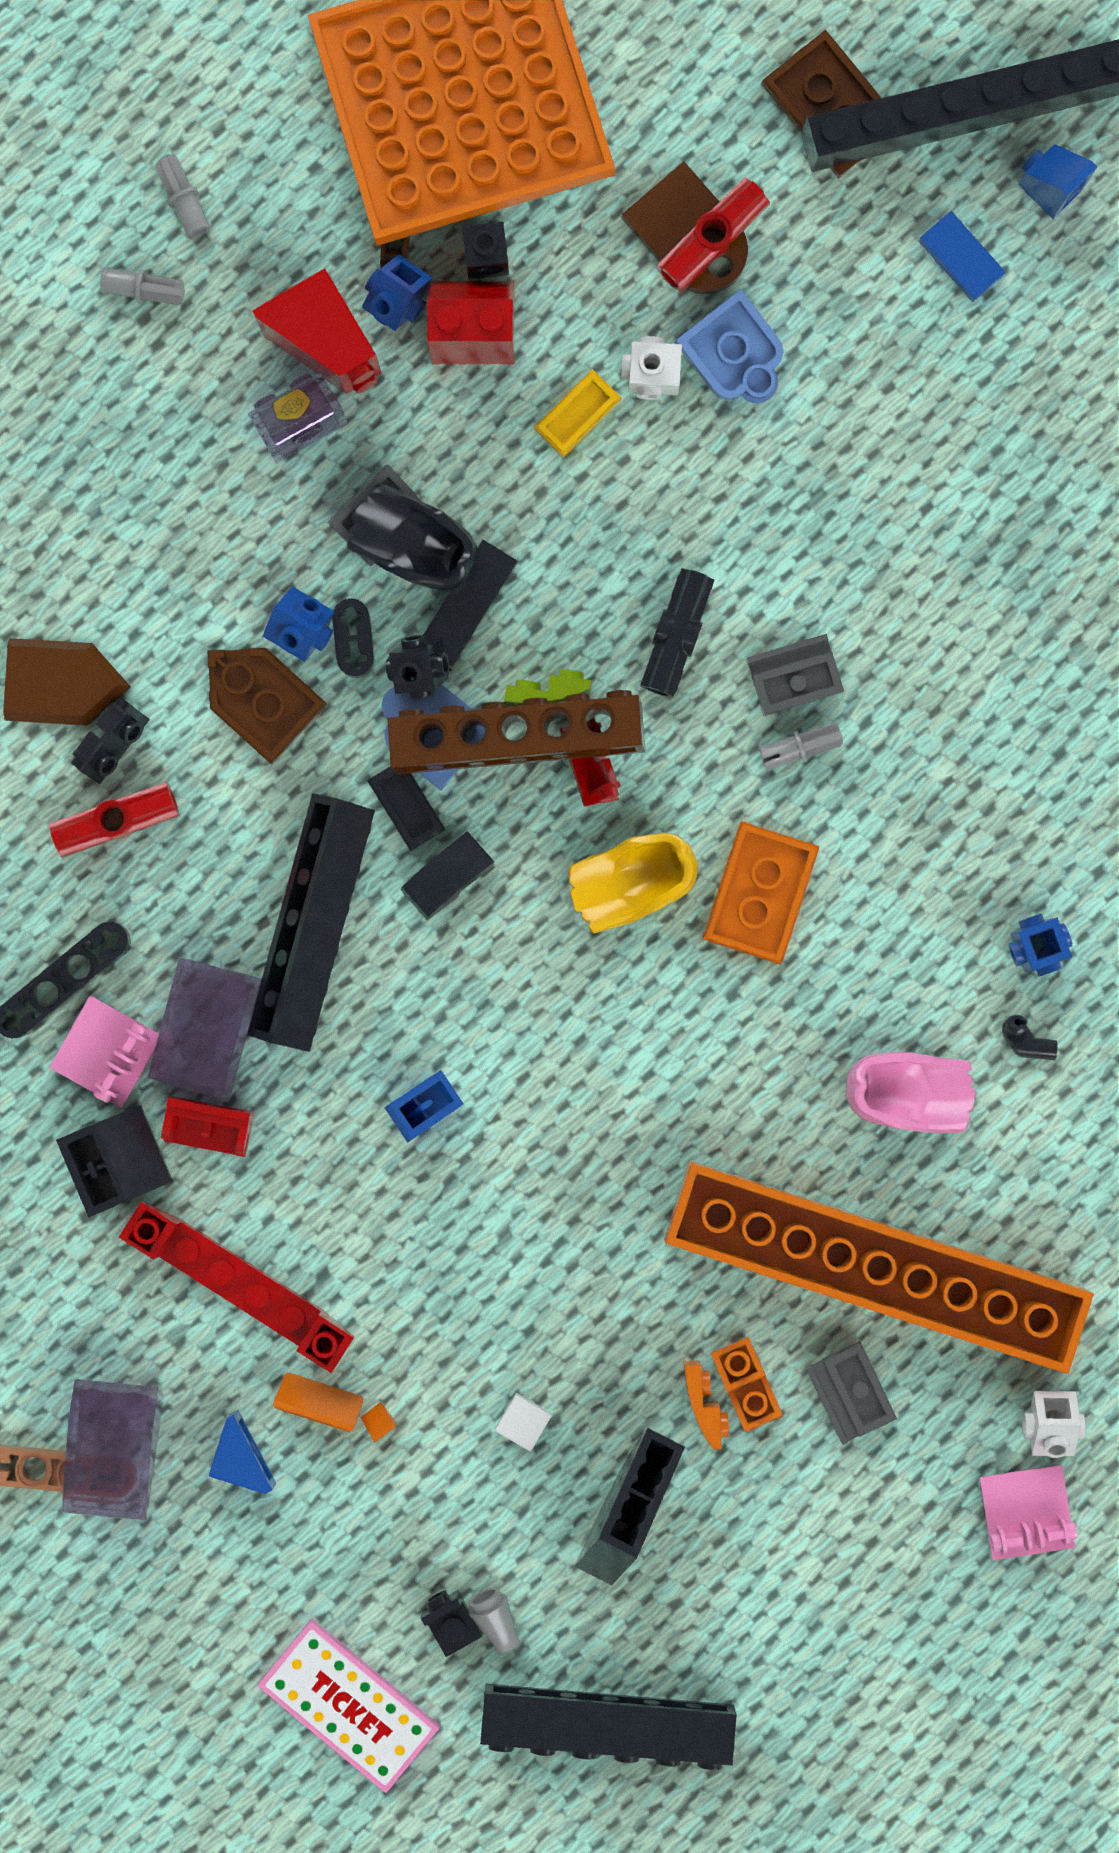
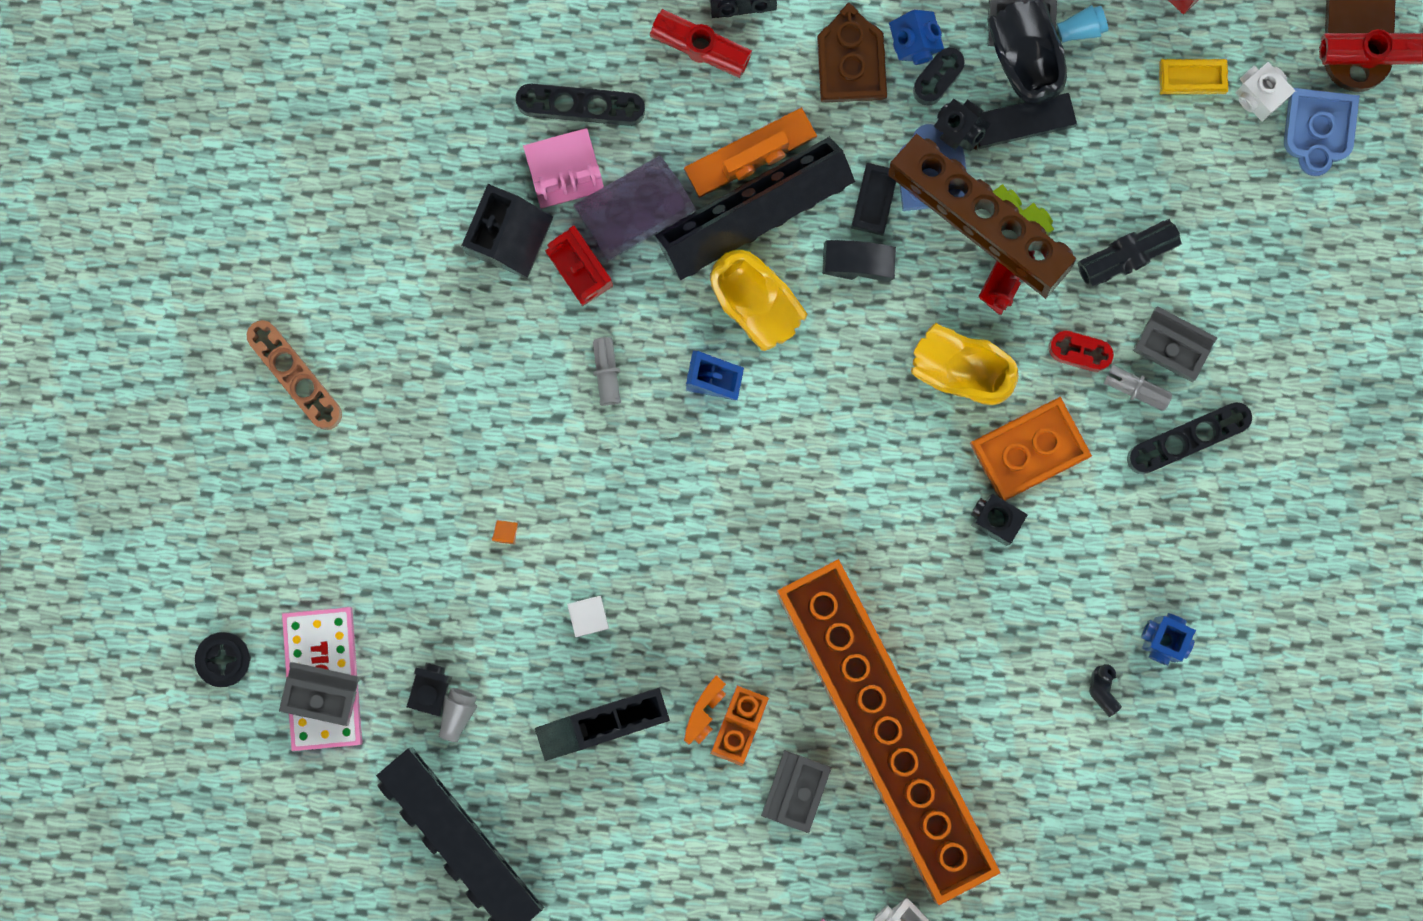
camera: 40 degrees right, 5 degrees down
(111, 1449) = (339, 391): clear purple slope -> none
(239, 1282) = (505, 370): red slope -> none
(240, 1459) = (405, 471): blue slope -> none
(250, 1794) = (211, 648): none -> black gear
(256, 872) = (750, 152): none -> orange bracket
(318, 1402) = (483, 486): orange slope -> none
(324, 1194) = (606, 371): none -> light grey axle
(361, 1723) = (319, 694): none -> dark grey plate
(391, 1001) = (756, 298): none -> yellow hair
(435, 464) = (1083, 25): none -> medium azure cone
(714, 753) = (1083, 343): none -> red beam
(811, 982) = (1013, 519): none -> black brick
(891, 747) = (1189, 439): none -> black beam
(912, 1092) = (1007, 650): bright pink hair -> none

